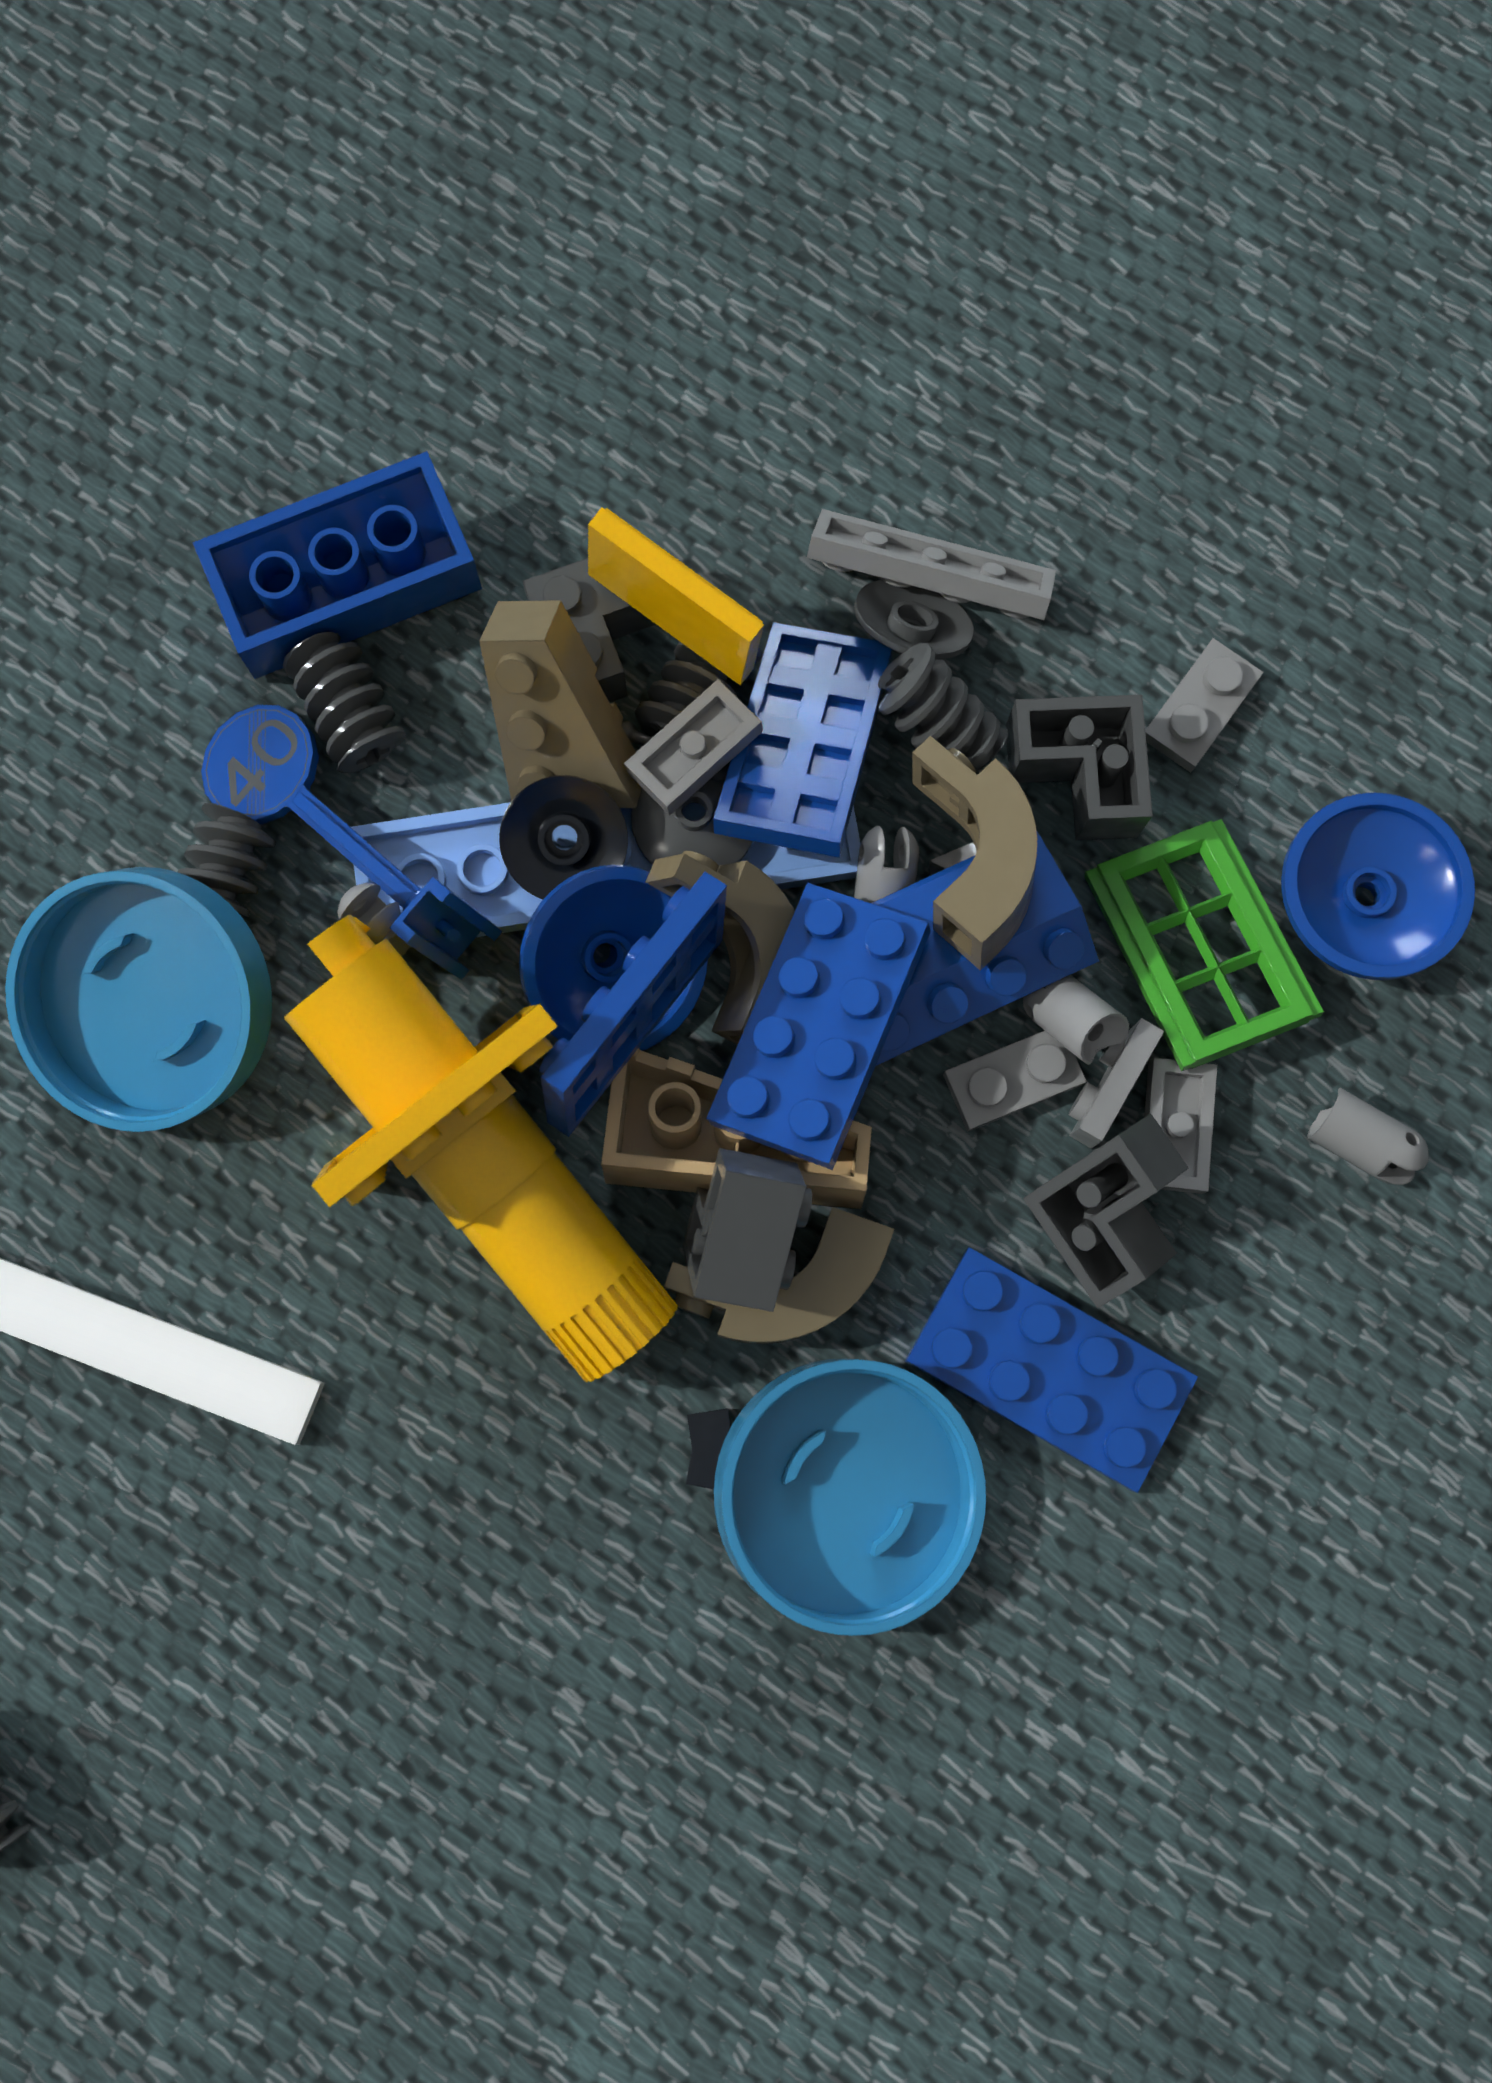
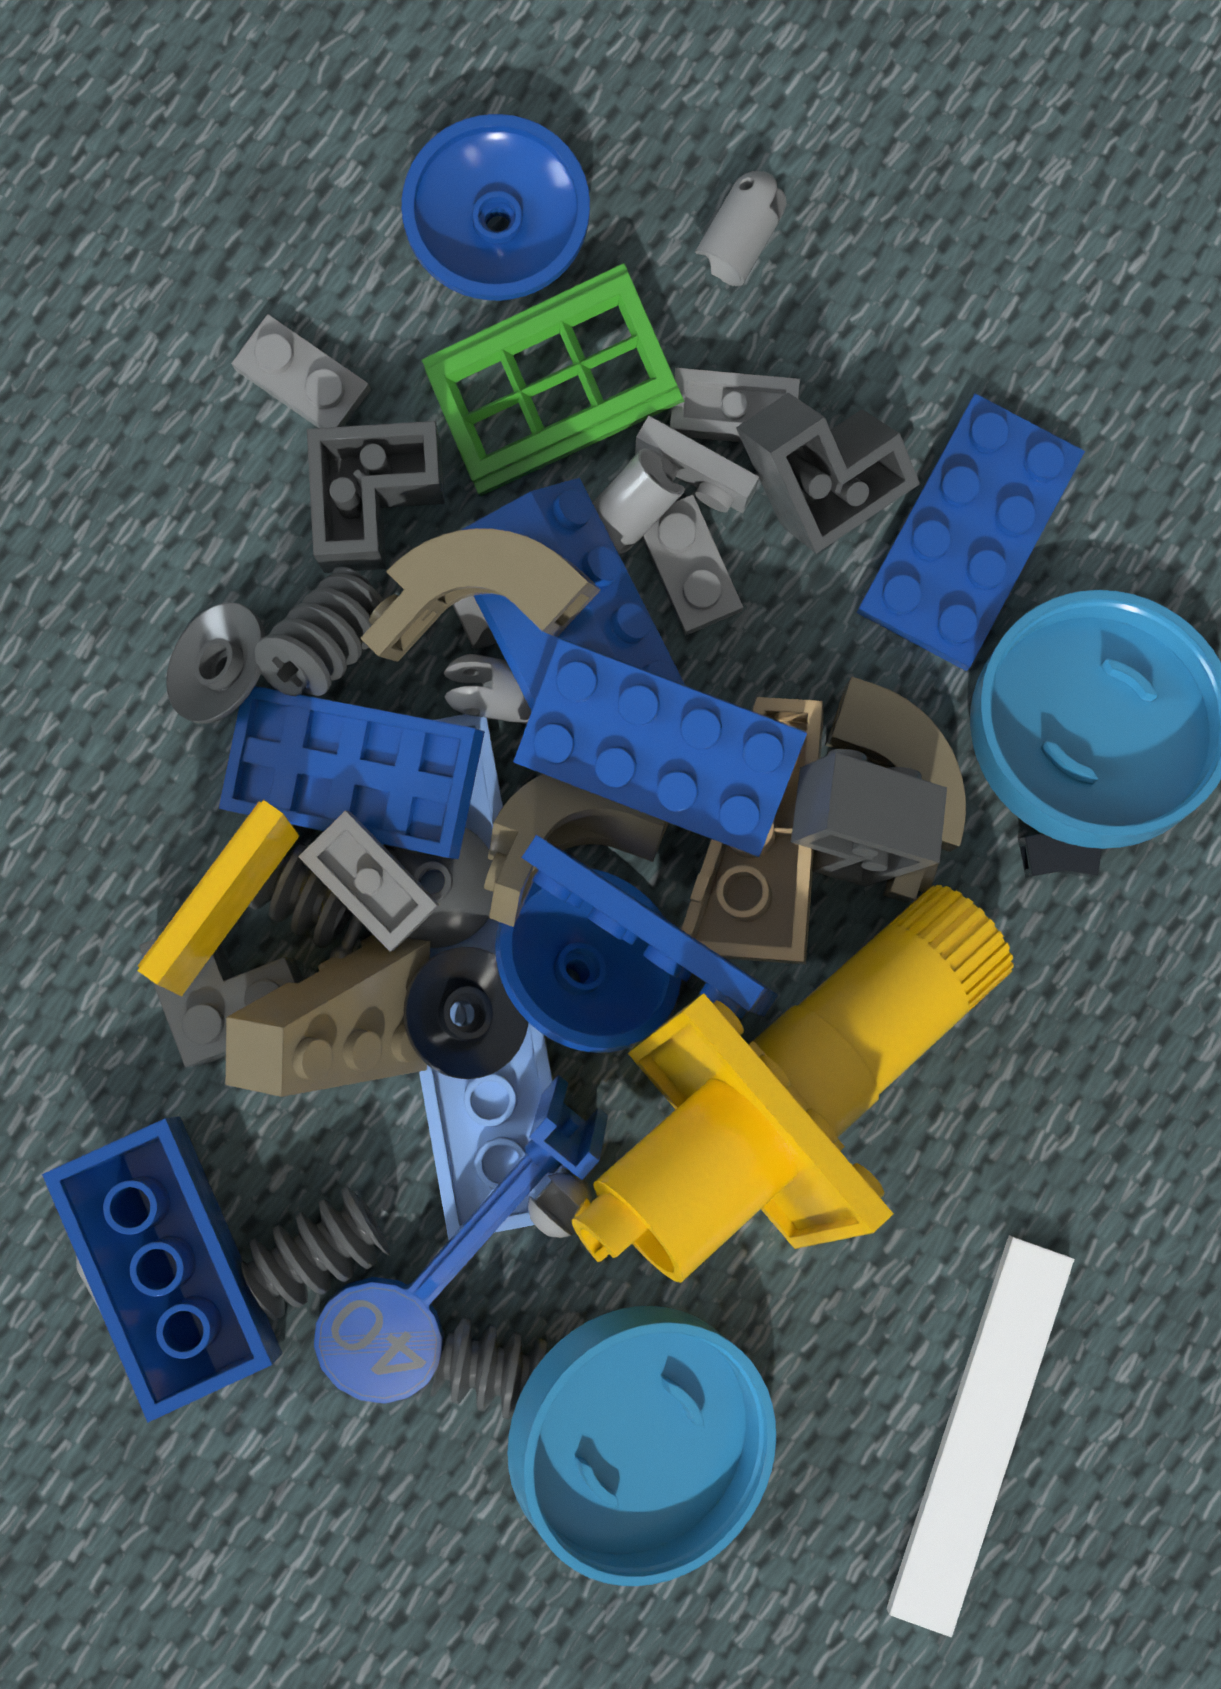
camera: 90 degrees left, 5 degrees up
(932, 564) = (154, 645): light grey plate -> none

